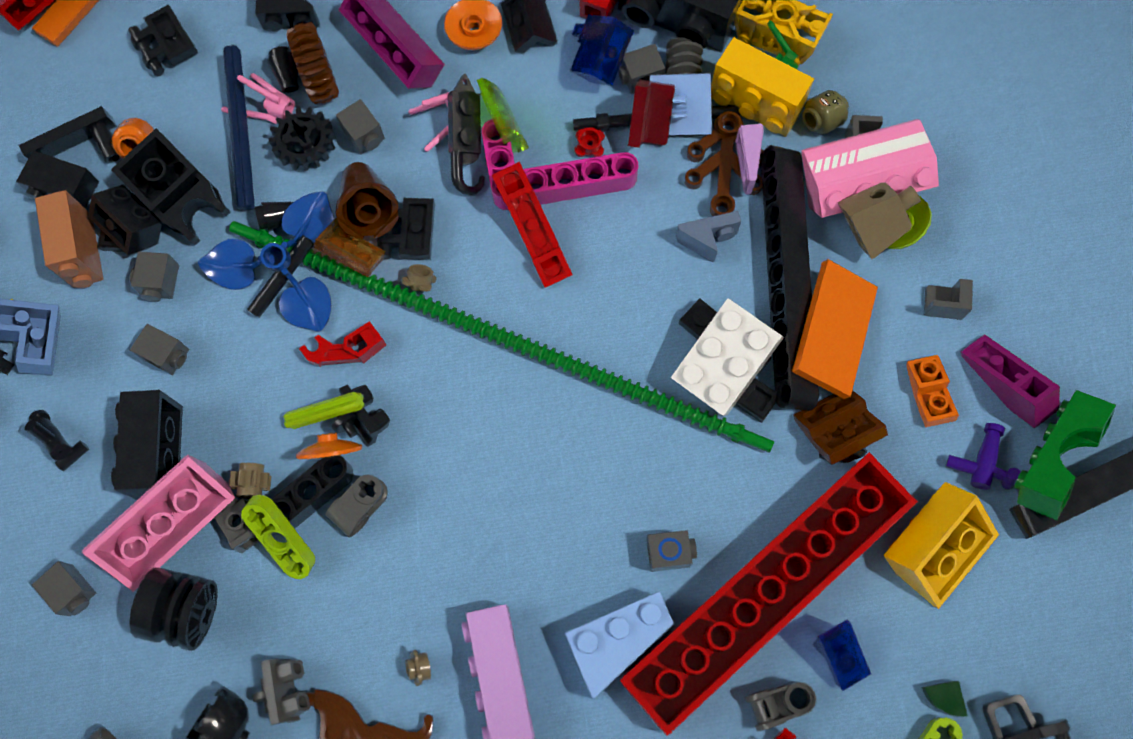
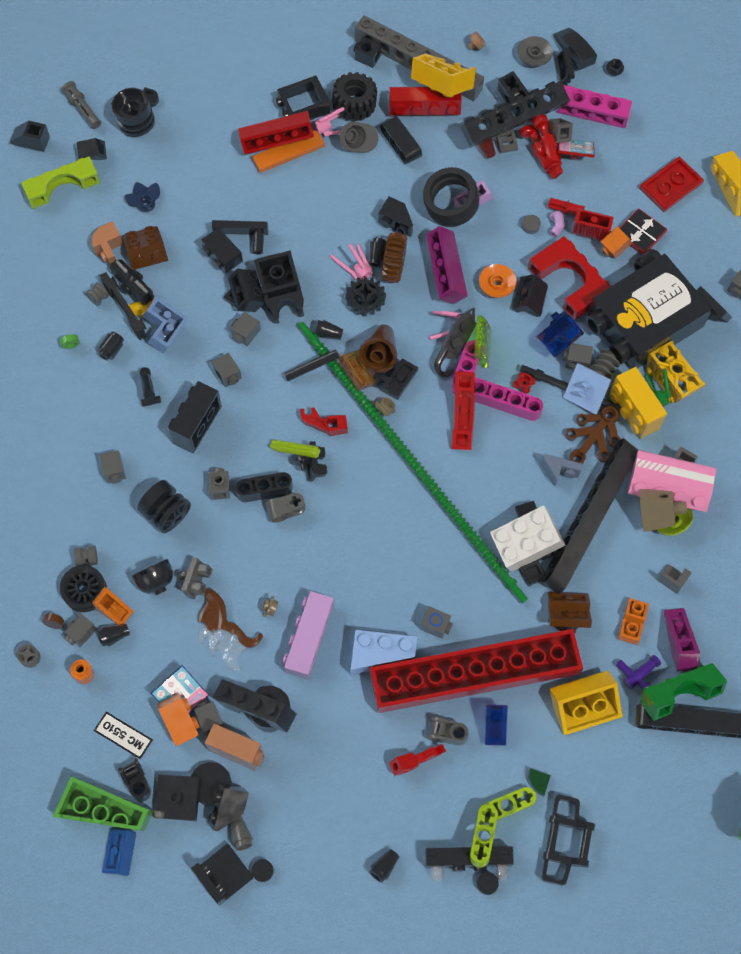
camera: 25 degrees right, 5 degrees down
(68, 239) = (211, 286): nougat brick -> none
(129, 135) = (273, 245): orange head -> none
(160, 522) = (181, 458): bright pink slope -> none
(170, 35) = (324, 197): black plate -> none
(233, 262) = (291, 342): blue plant -> none
(238, 129) = (333, 272): dark blue axle -> none
(250, 480) = (236, 464): dark tan gear -> none
(264, 518) = (241, 494): lime beam -> none
(327, 446) = (288, 467): orange dish -> none
(360, 126) = (401, 306): dark grey brick -> none
(651, 113) = (566, 384): dark red panel -> none
(748, 150) = (612, 432): lavender slope -> none
(825, 112) = (669, 437): olive head -> none
(835, 329) = (598, 557): orange tile -> none

